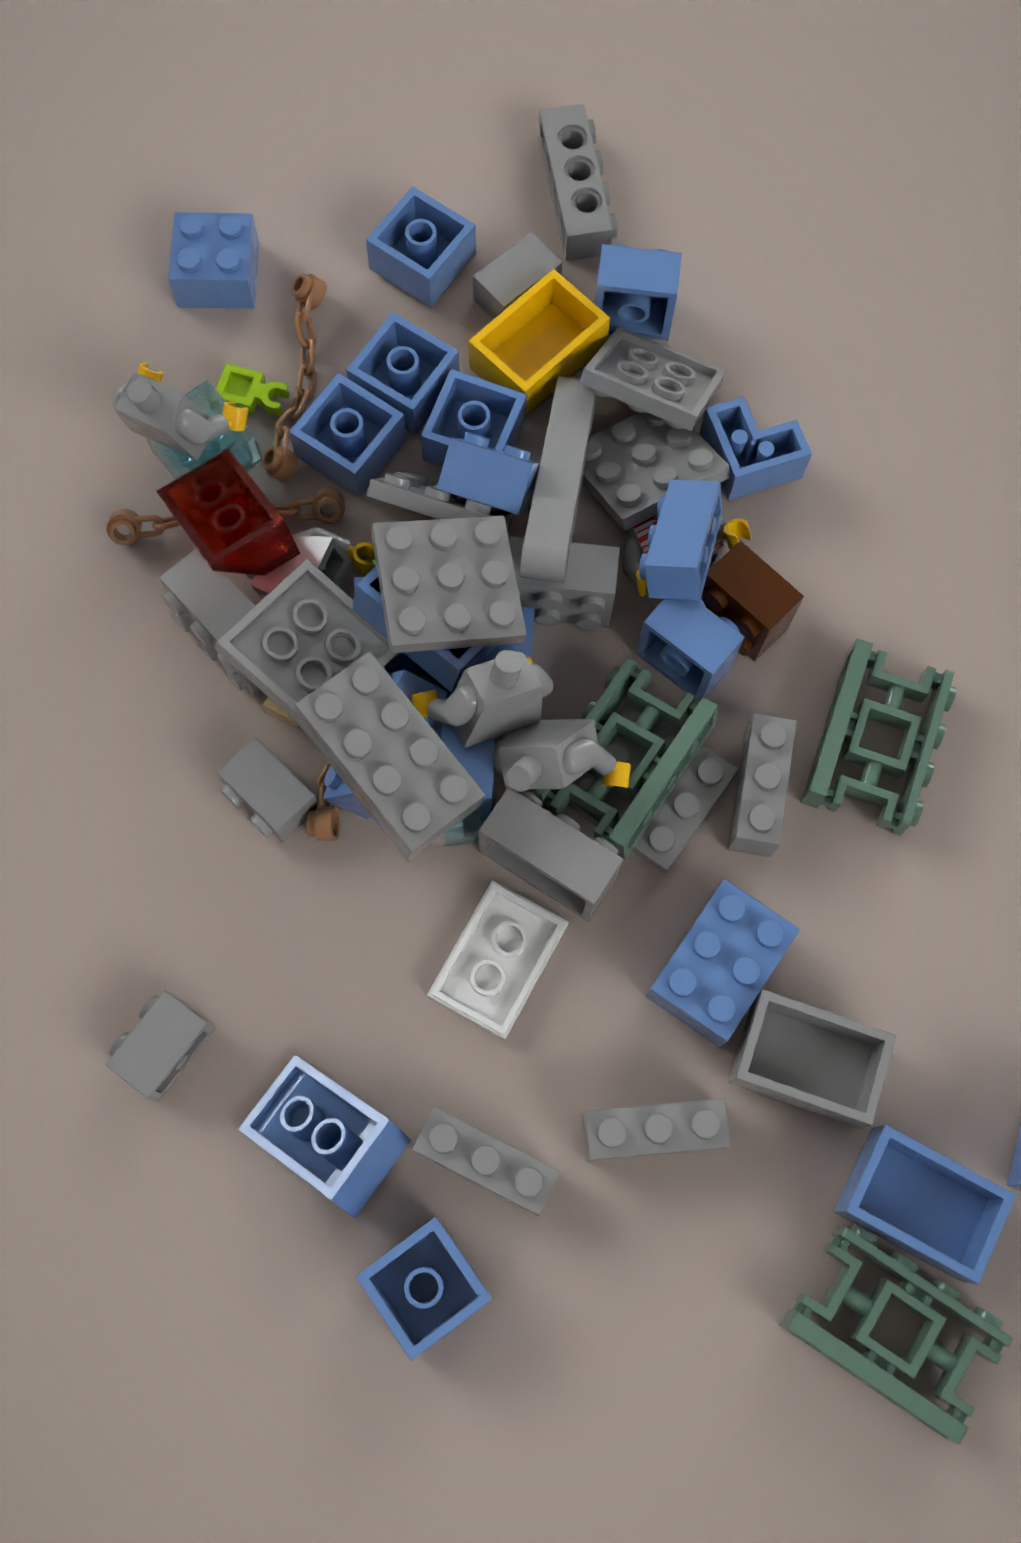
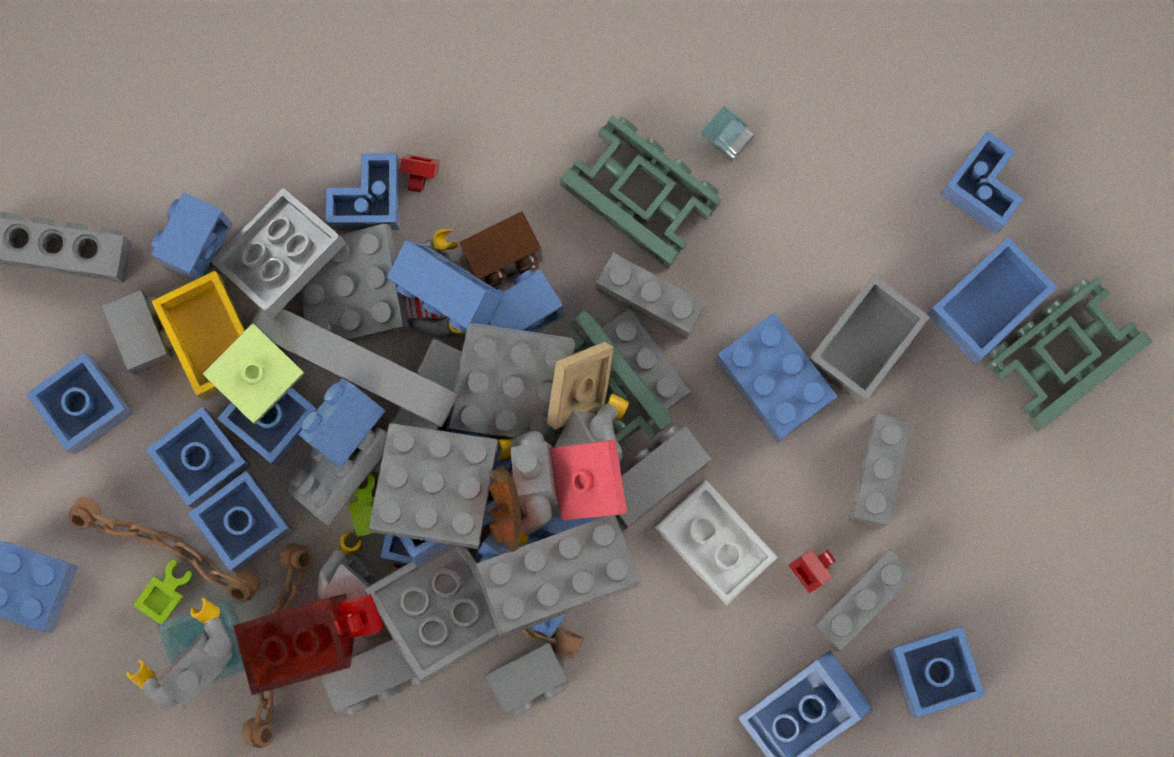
camera: 70 degrees left, 10 degrees up
(272, 562) = (358, 617): none -> red tile
(434, 669) = (507, 516): none -> clear orange slope
(504, 1085) = (812, 569): none -> red tile
(512, 385) = (253, 373): none -> yellowish green plate
(515, 751) = (588, 480): none -> coral plate
(601, 642) = (506, 381): none -> light grey plate
(629, 718) = (580, 383): none -> tan plate
(801, 496) = (419, 169): none -> red tile
(988, 816) = (728, 133): none -> clear light blue piece

